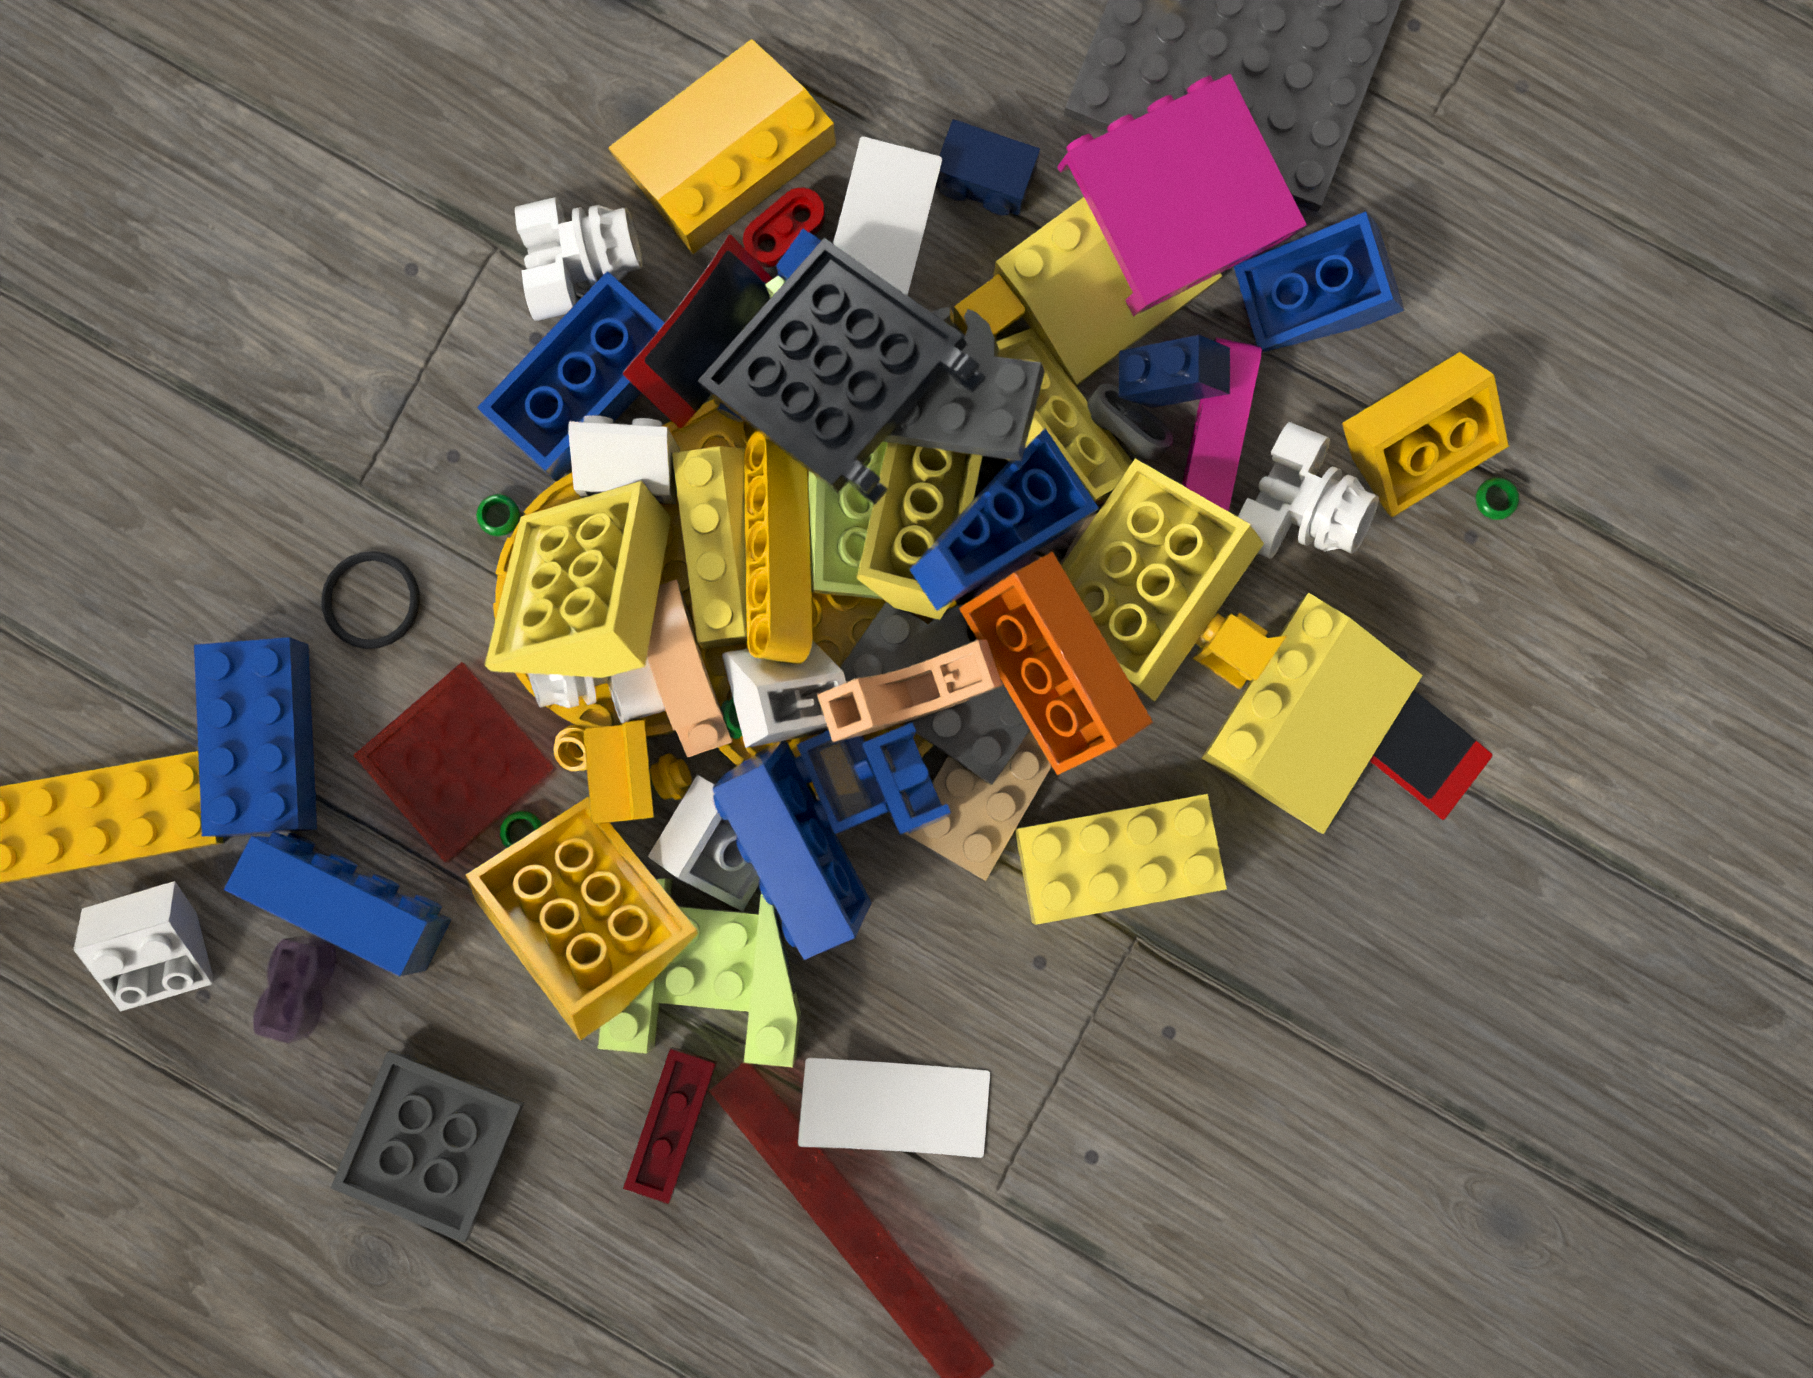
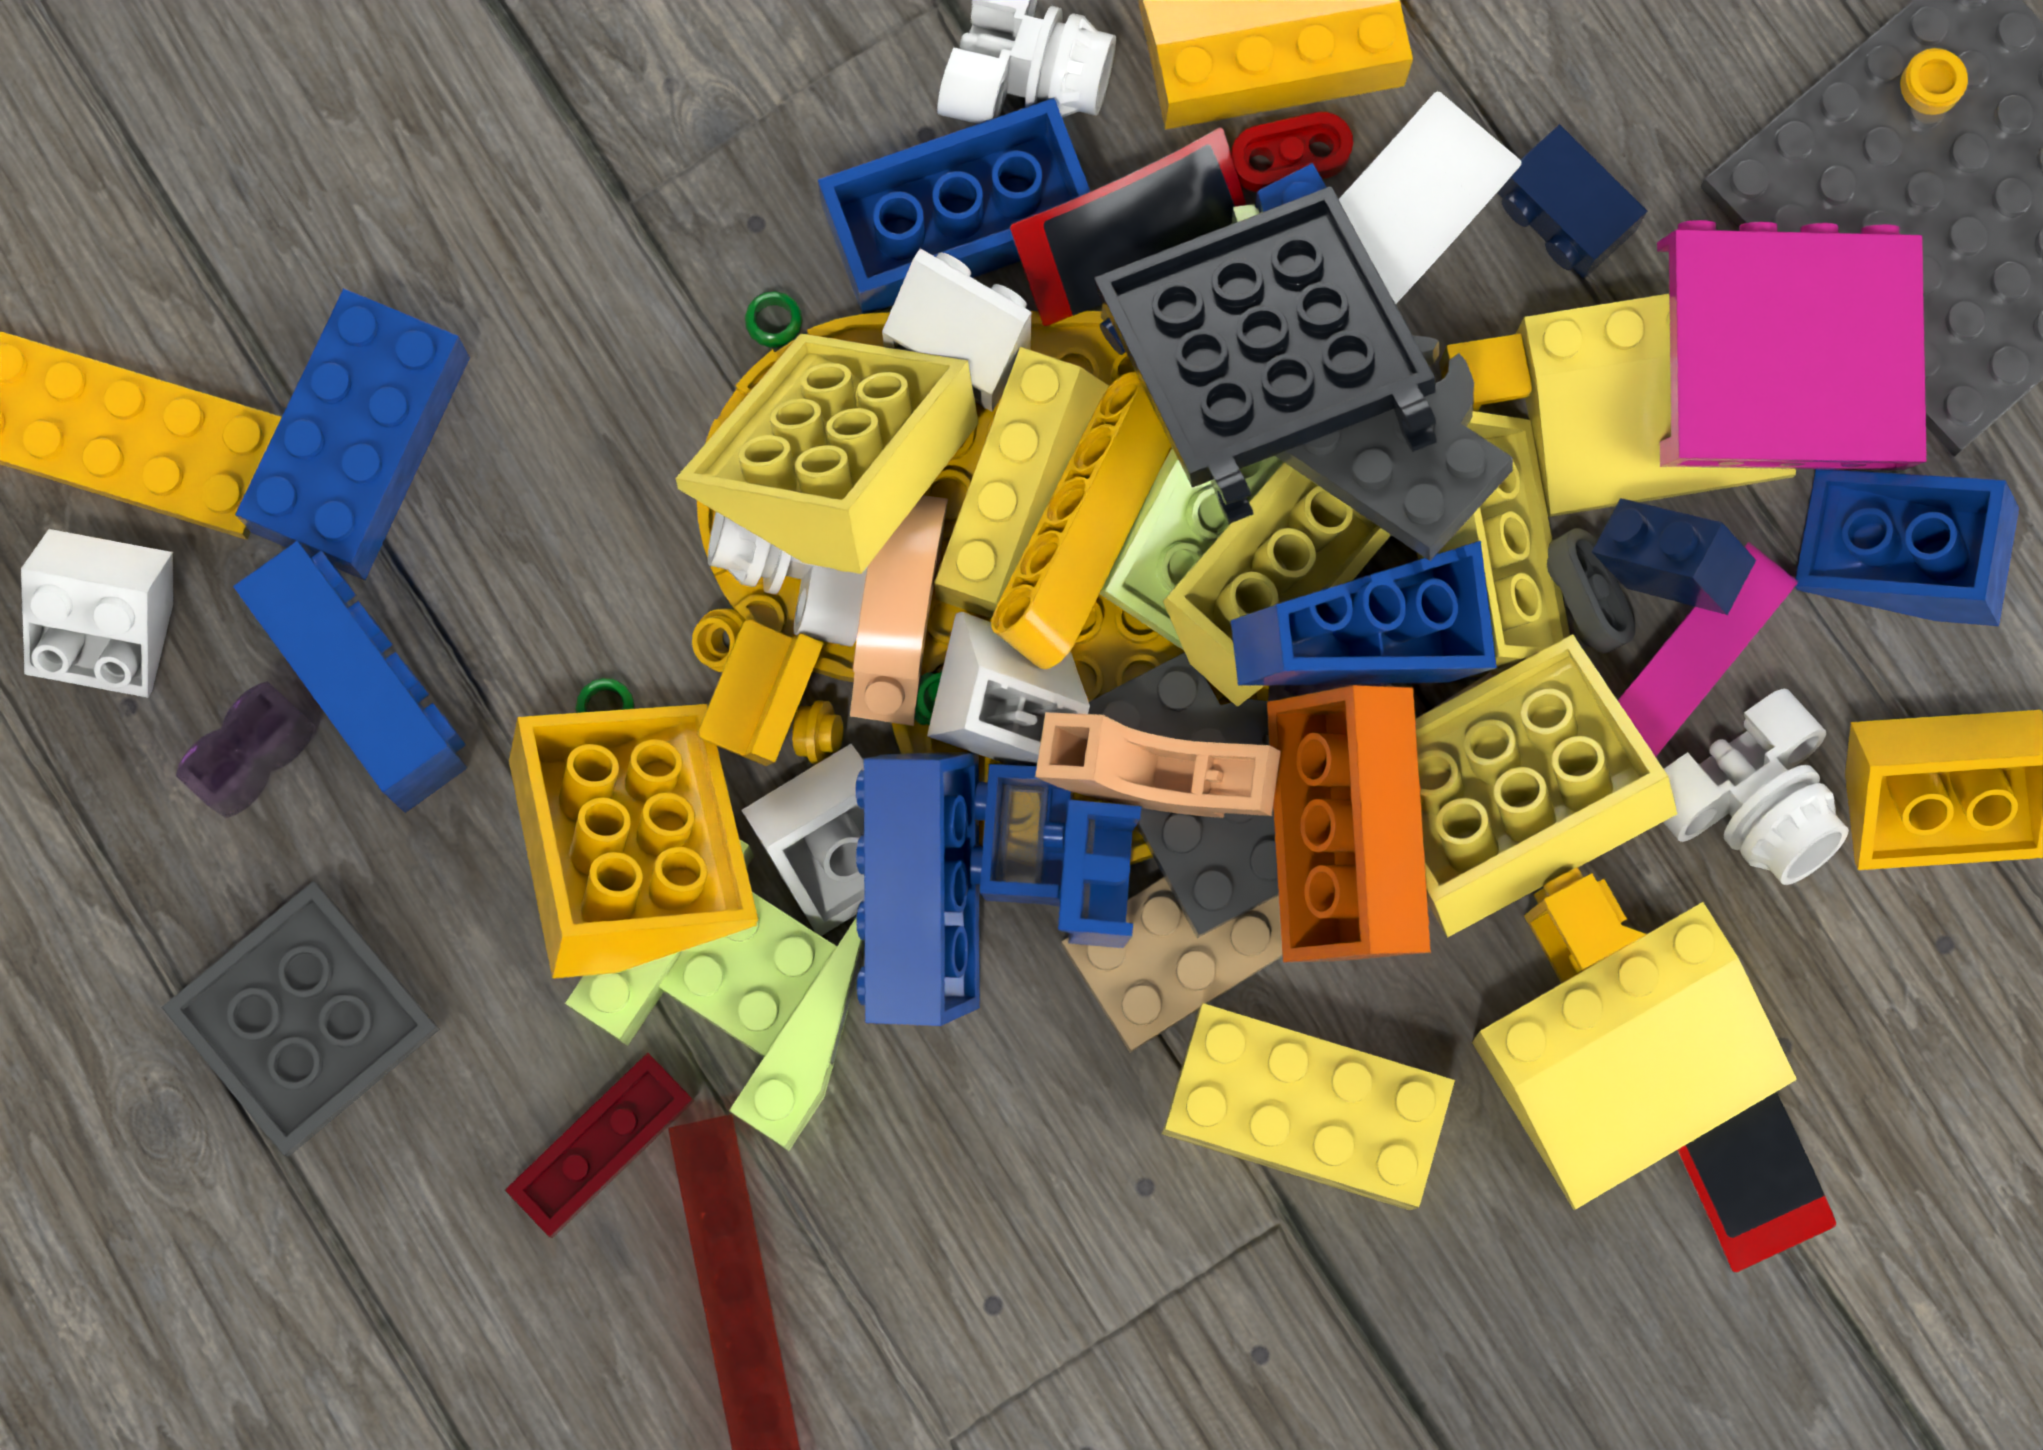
camera: 25 degrees right, 5 degrees down
(340, 569) = (550, 290): black tyre -> none
(454, 762) = (570, 583): clear red plate -> none
(894, 1107) = (879, 1267): white sticker -> none
(1512, 494) = (2021, 906): green piece -> none

